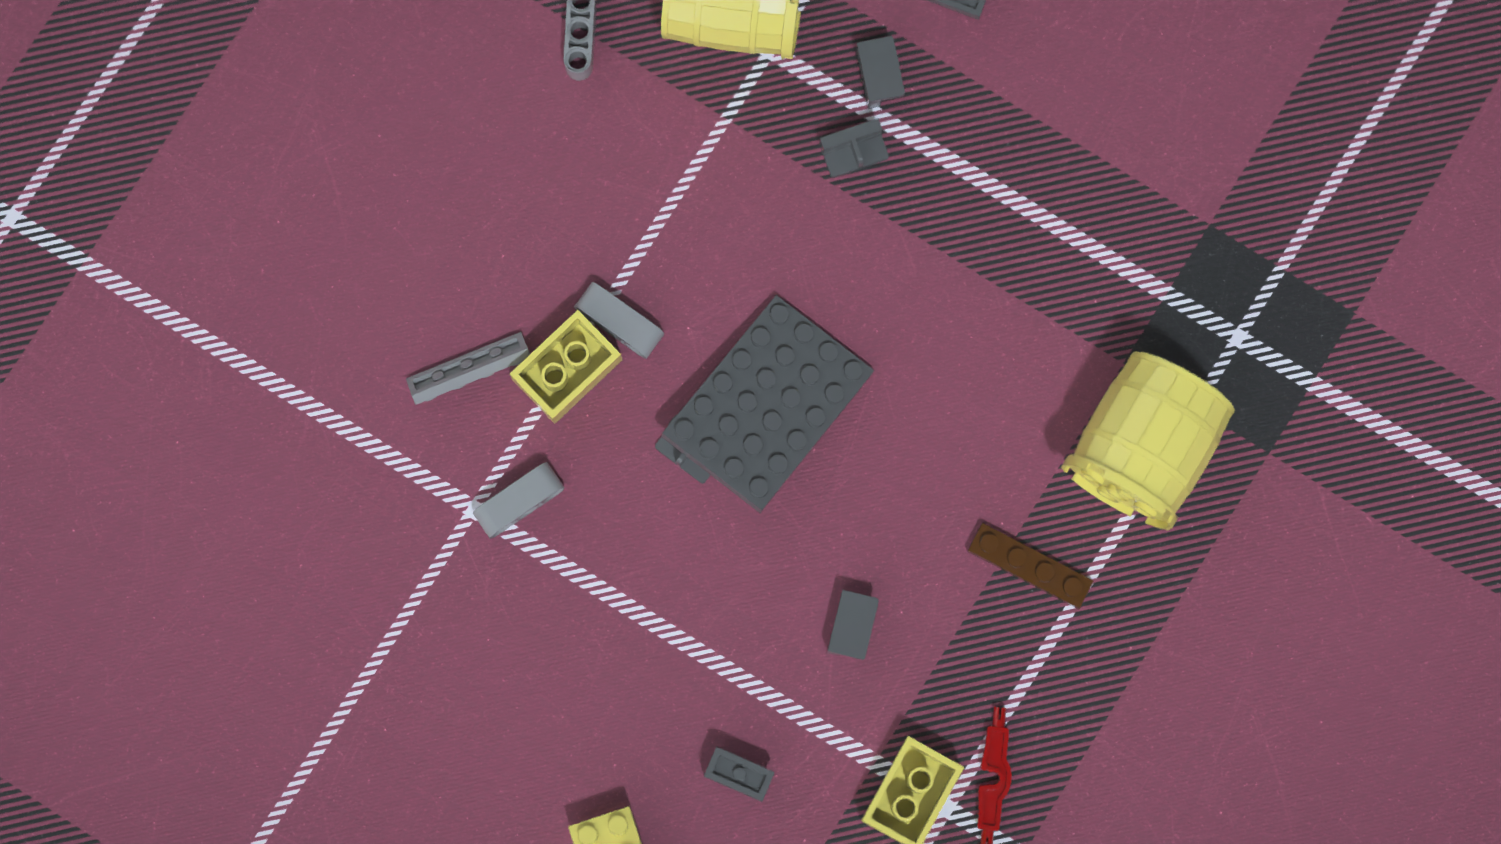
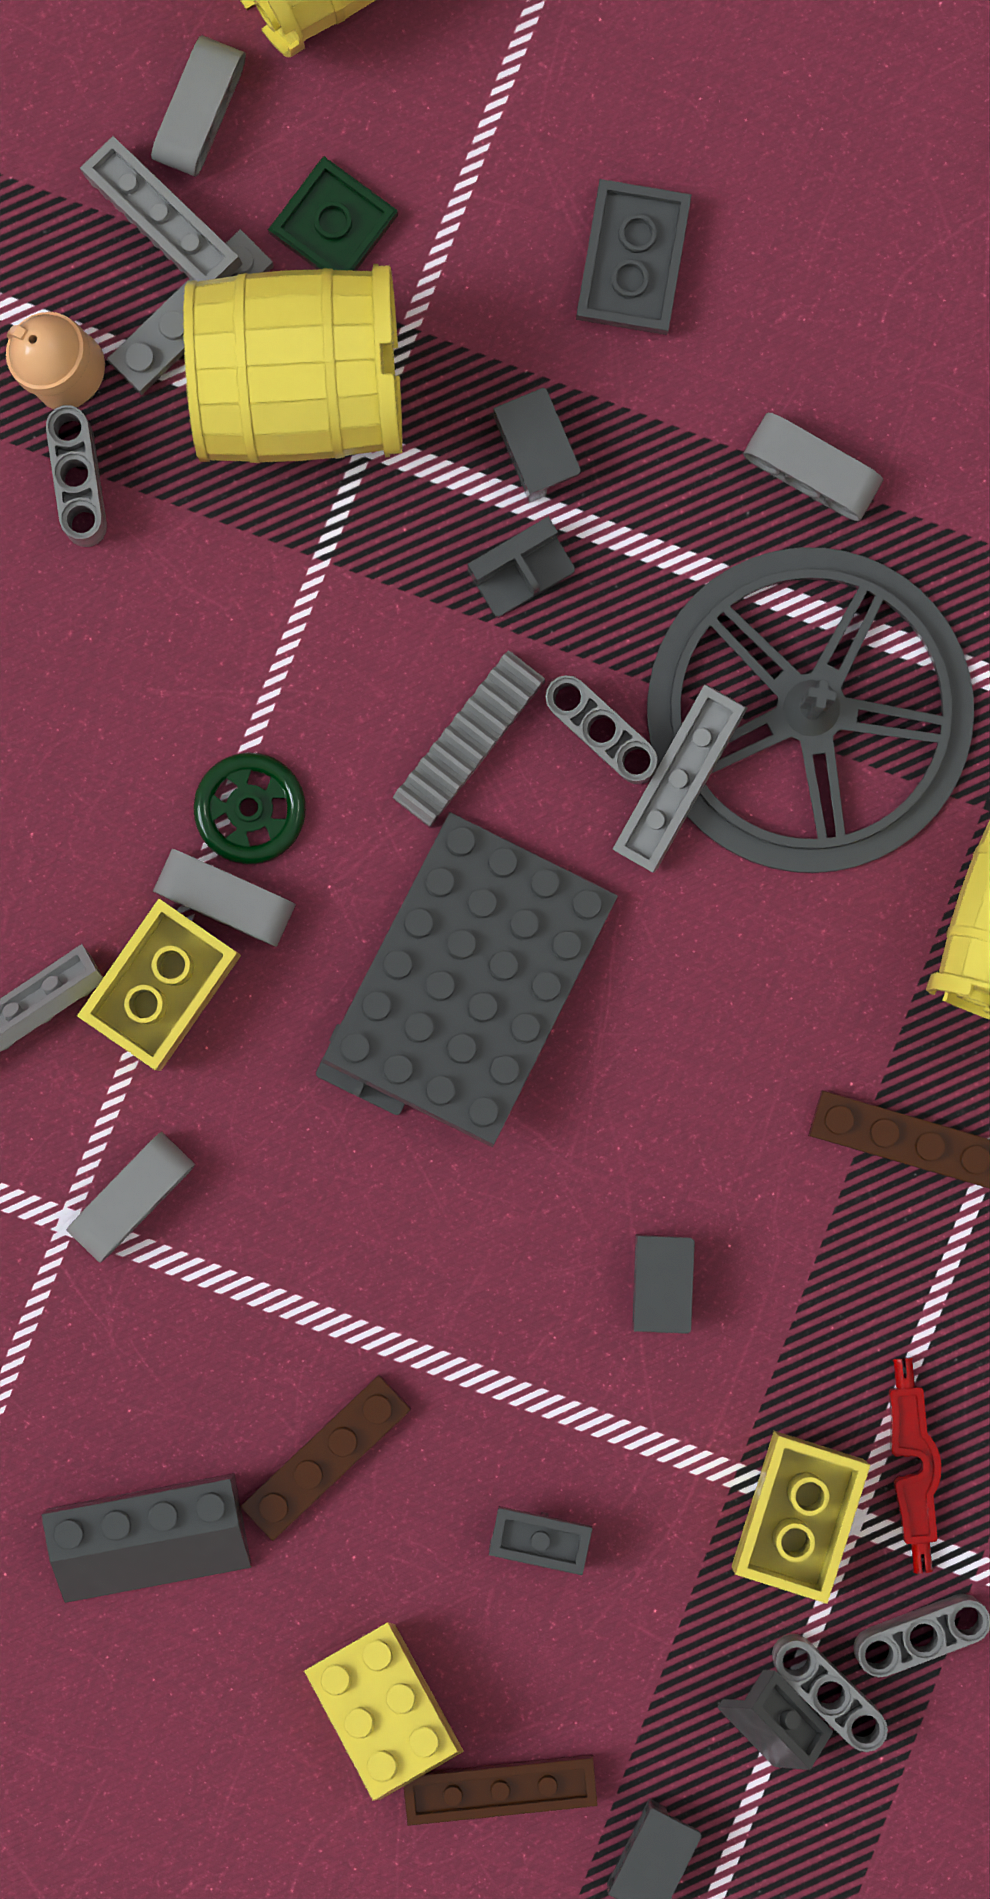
camera: 10 degrees left, 5 degrees up
(483, 723) = (146, 1538): none -> dark grey slope
(610, 695) = (325, 1457): none -> reddish brown plate
(664, 286) = (281, 785): none -> dark green plate
(798, 251) = (469, 738): none -> light grey gear
(879, 248) = (593, 708): none -> light grey beam
(929, 302) = (679, 778): none -> light grey plate
(1023, 278) = (815, 708): none -> dark grey wheel
(1055, 121) = (813, 466): none -> light grey beam

